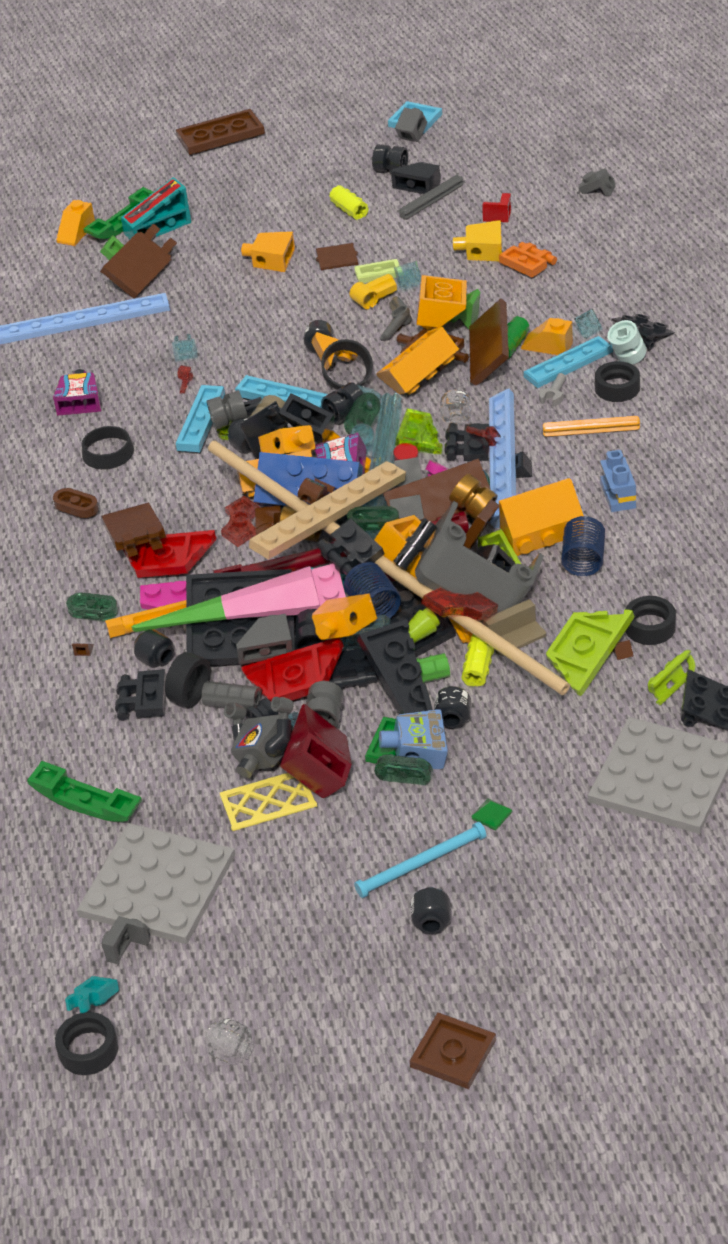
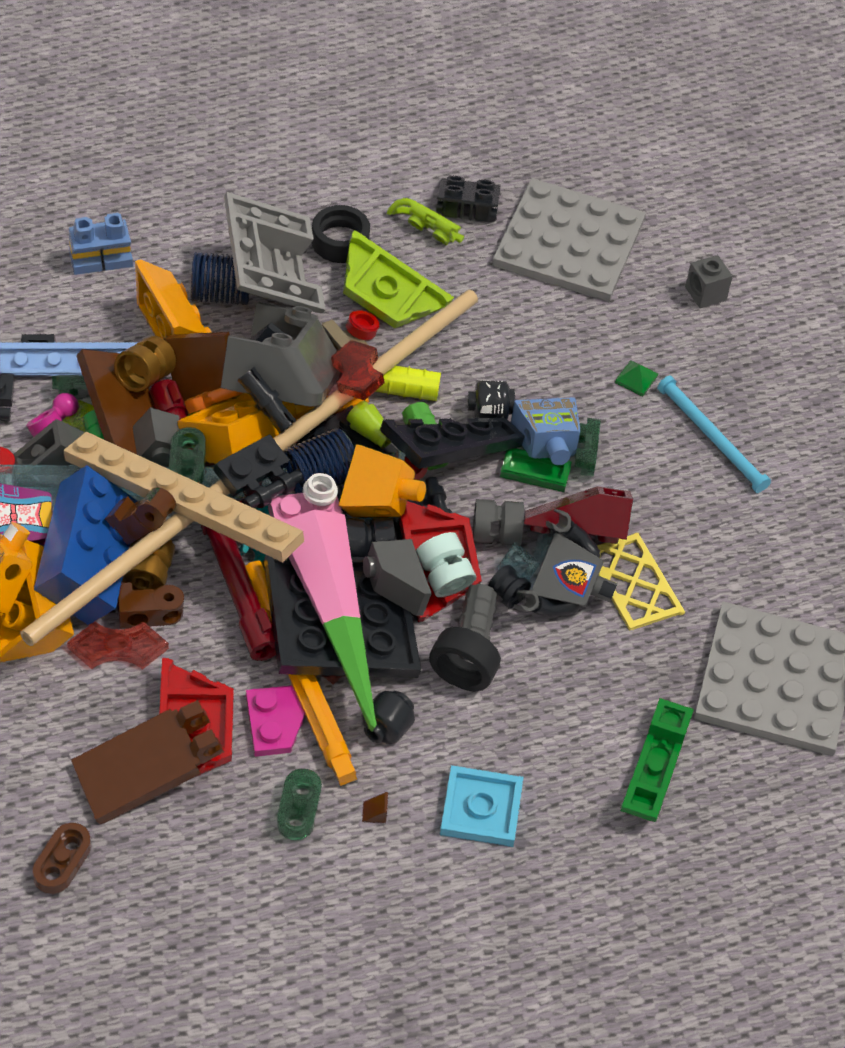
camera: 105 degrees left, 10 degrees up
(74, 701) = (481, 806): none -> medium azure tile
(149, 694) = (472, 714): black plate -> none
(269, 663) = (445, 563): none -> light aqua wheel
(333, 582) = (320, 489): none -> white plate
(430, 910) = (792, 416): black head -> none
(544, 635) = (362, 325): none -> red tile
(590, 559) = (269, 252): none -> light grey slope
(602, 862) = (708, 281): none -> dark grey brick

